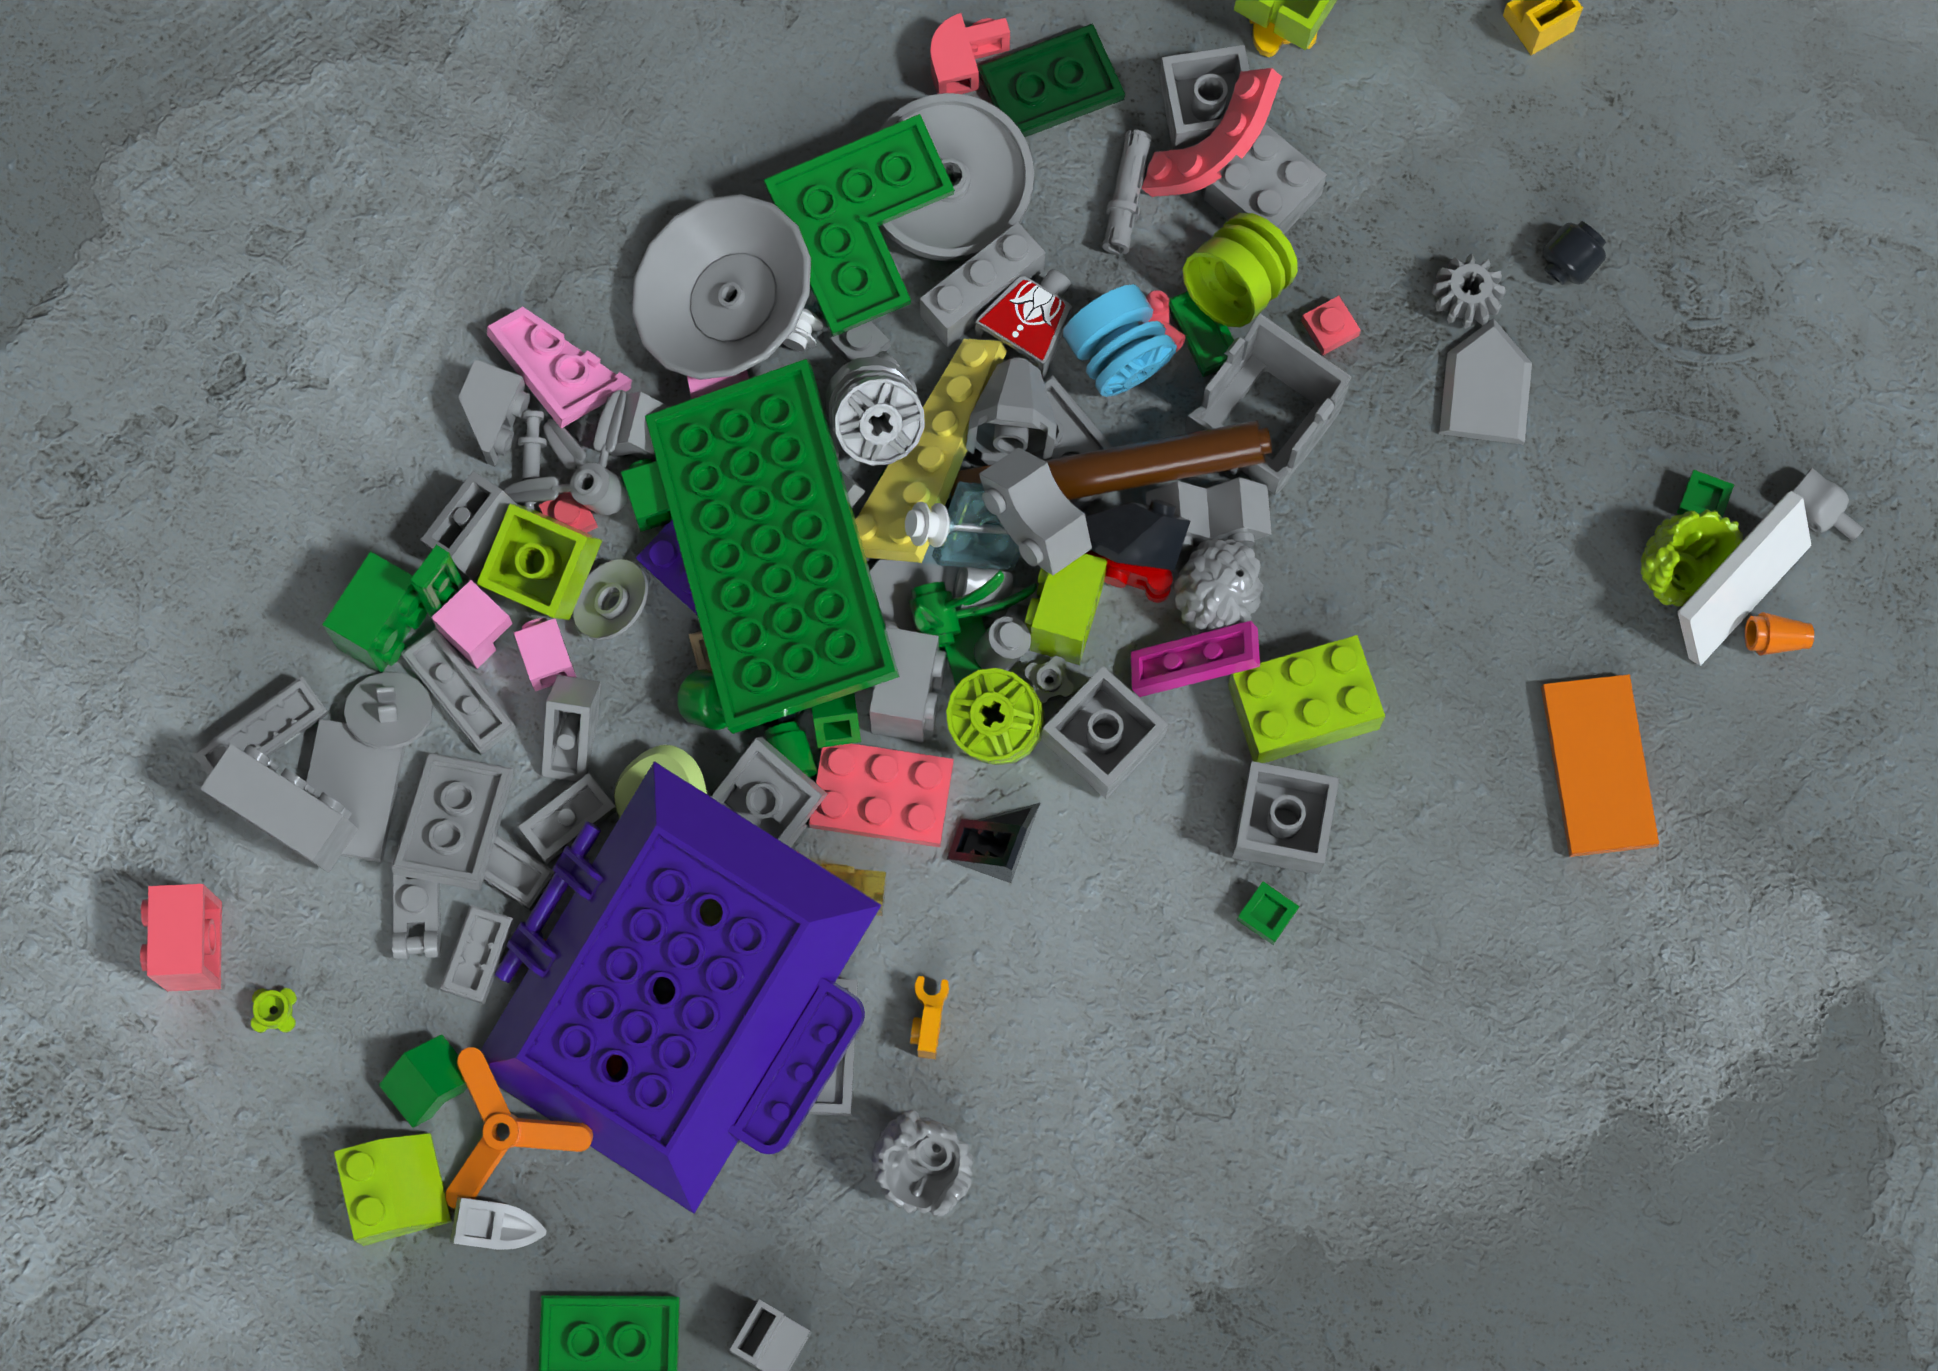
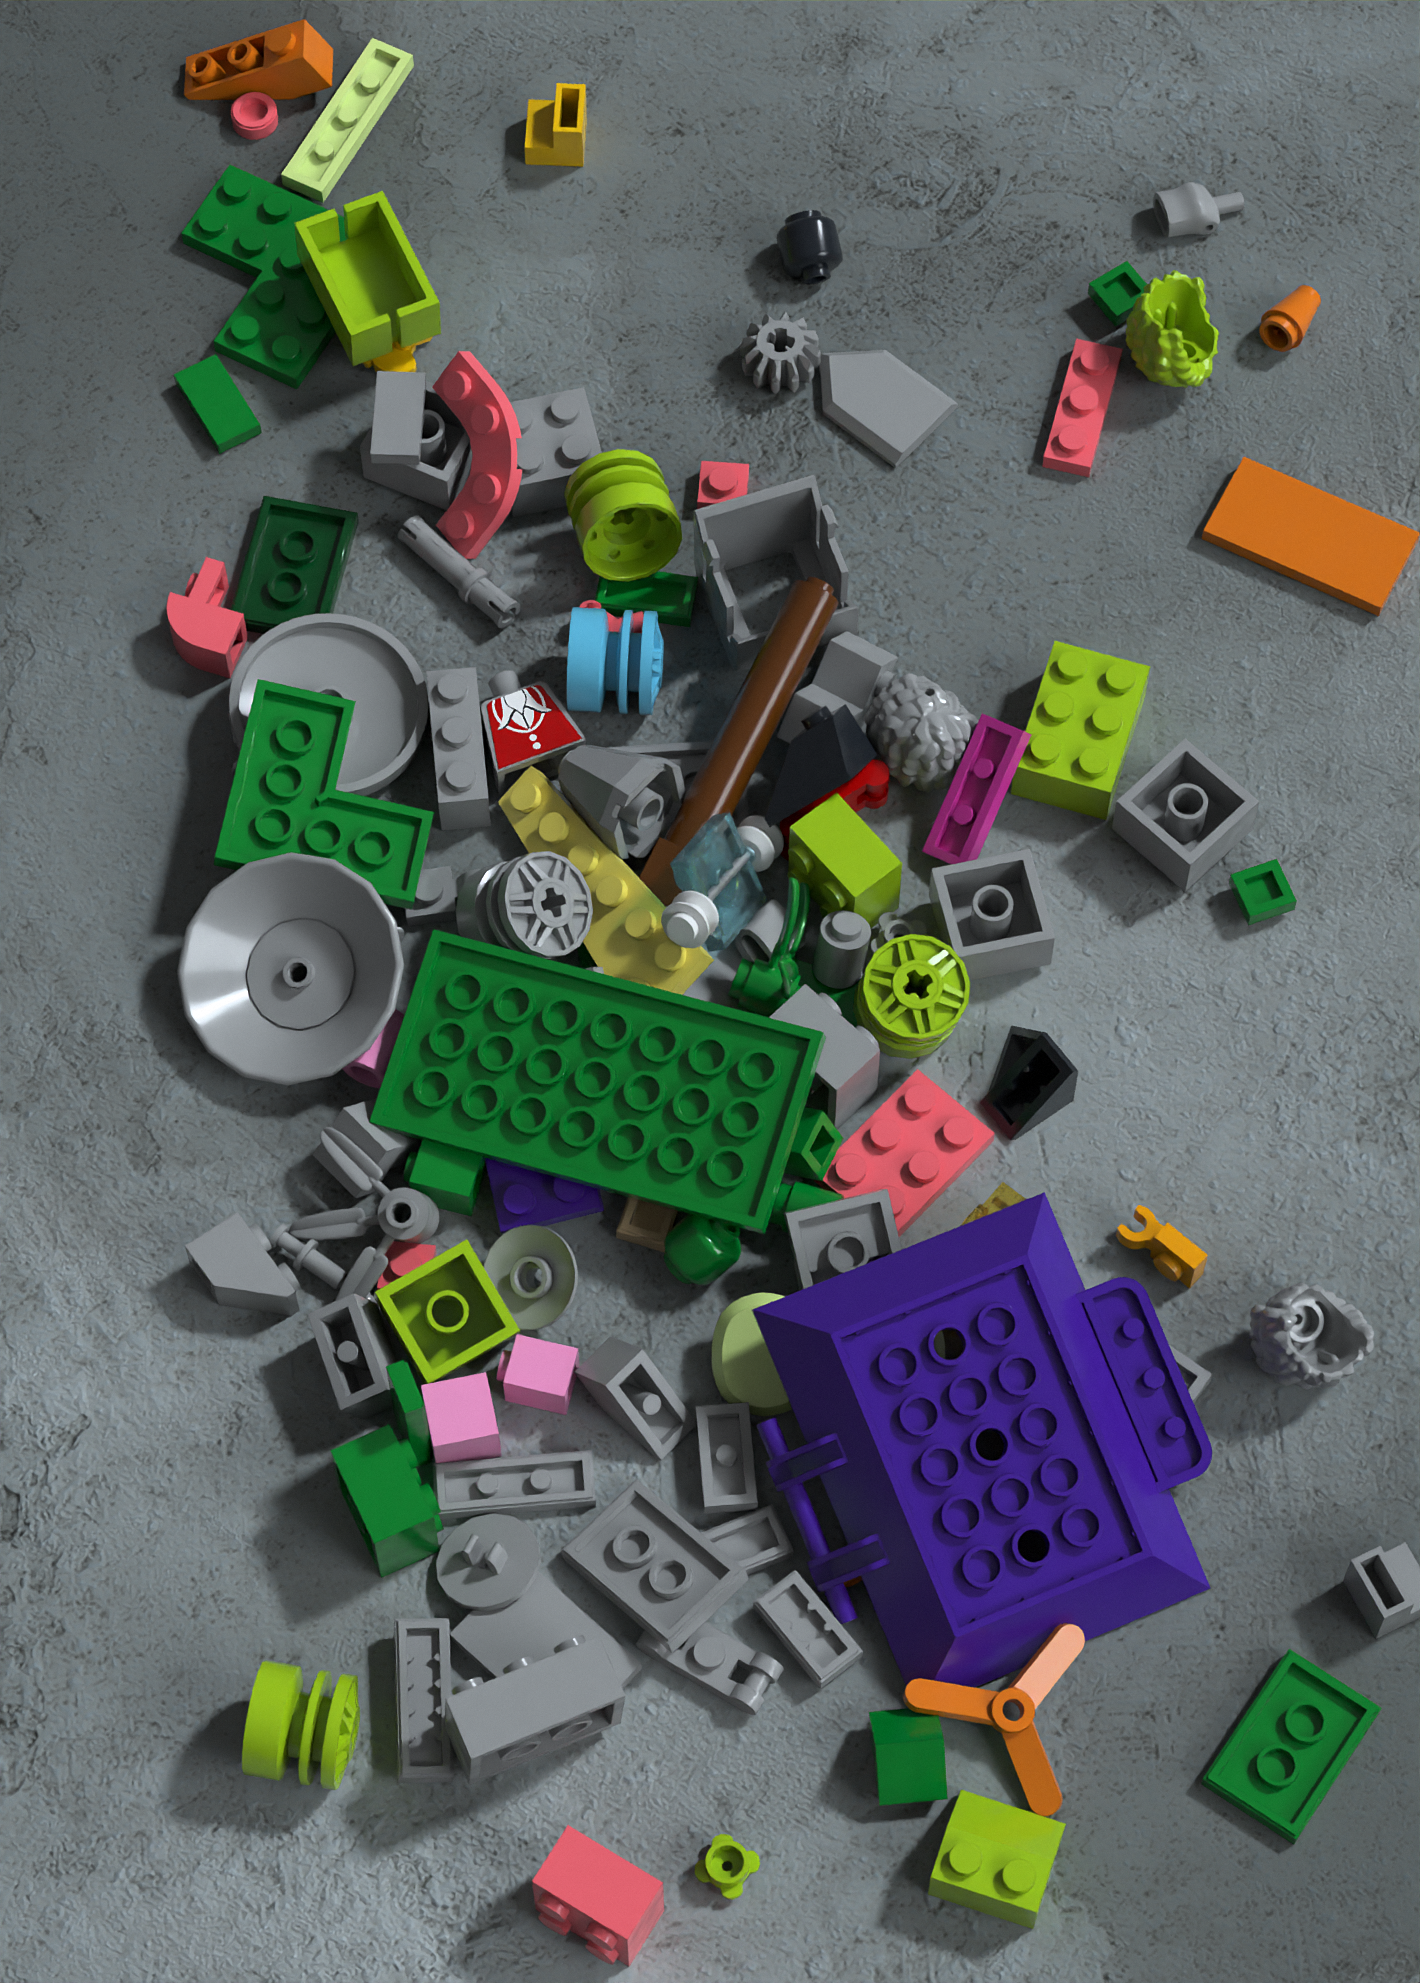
camera: 55 degrees left, 10 degrees down
(181, 664) = (300, 1725): none -> lime wheel
(493, 1225) = (1100, 1782): light grey plate -> none
(552, 368) = (259, 1184): bright pink wing -> none
(1035, 511) = (749, 815): light grey brick -> none
(1200, 66) = (398, 417): none -> light grey tile
(1587, 532) = (1082, 408): none -> coral plate
(1744, 578) = (1225, 303): white tile -> none

